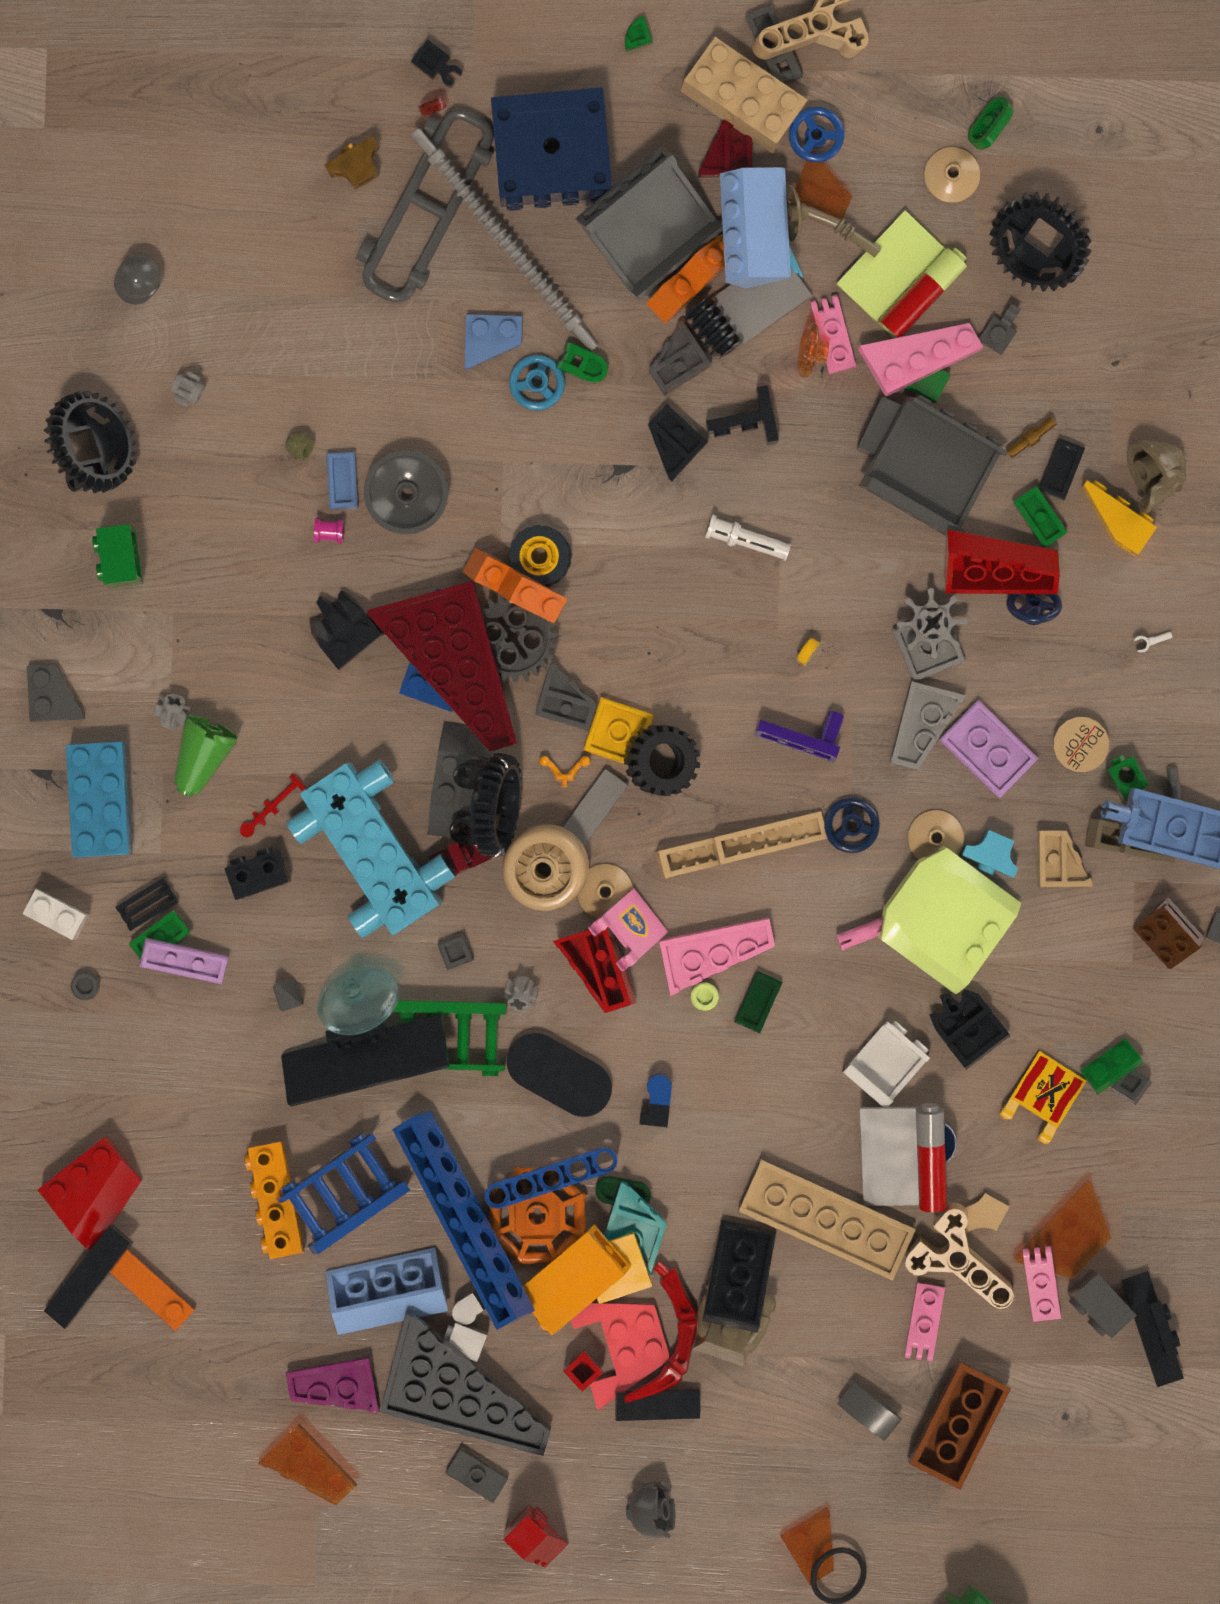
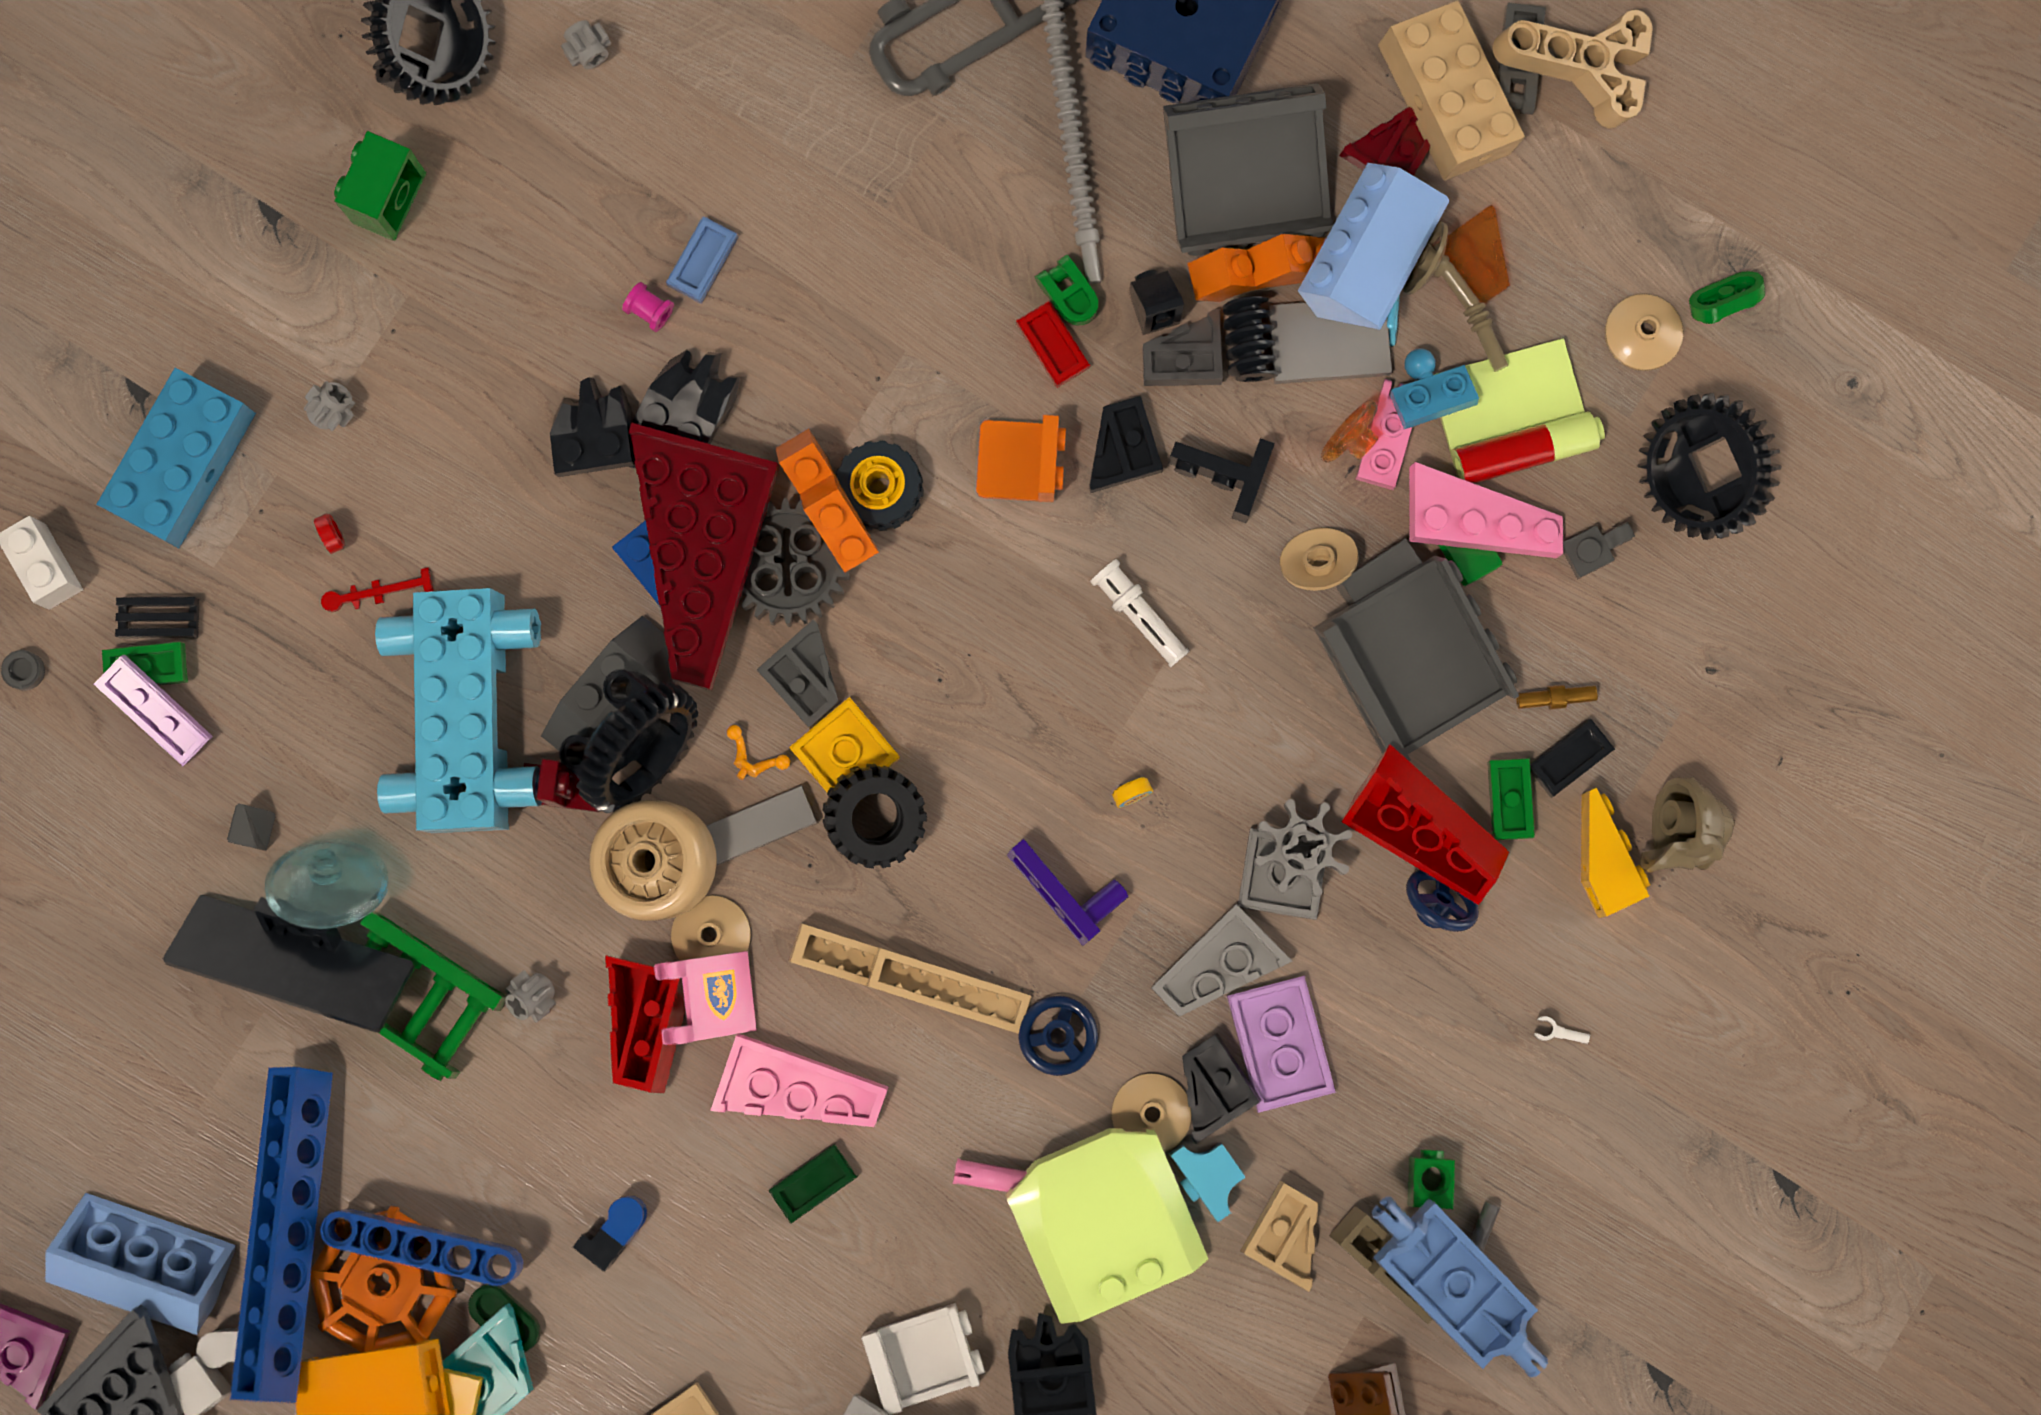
camera: 30 degrees right, 5 degrees down
(50, 696) = (202, 304): dark grey wing -> none
(201, 753) = (331, 475): bright green cone -> none
(221, 789) = (329, 533): none -> red tile
(256, 874) = (306, 660): black brick -> none
(278, 1219) = (78, 1067): light orange brick -> none
(299, 445) = (676, 188): olive plate -> none
(367, 1205) = (138, 1145): blue fence -> none
(389, 573) = (689, 398): none -> black plate
(391, 477) = (758, 289): dark grey dish -> none
(455, 952) = (485, 898): dark grey tile -> none
(490, 336) = (980, 196): medium blue wing -> none
(516, 387) = (998, 268): dark azure piece -> none
(559, 1075) = (516, 1125): black tile -> none
(592, 403) = (1052, 344): none -> red tile
(616, 488) = (1020, 460): none -> orange bracket
(640, 338) = (1156, 301): none -> black slope
(704, 996) = (752, 1136): yellowish green tile -> none
(811, 143) = (1505, 200): blue piece -> none
(830, 434) = (1319, 559): none -> tan dish
(845, 295) = (1432, 394): none -> dark azure plate
(965, 798) = (1216, 1087): none -> black wing
(1081, 744) = (1398, 1107): tan piece -> none

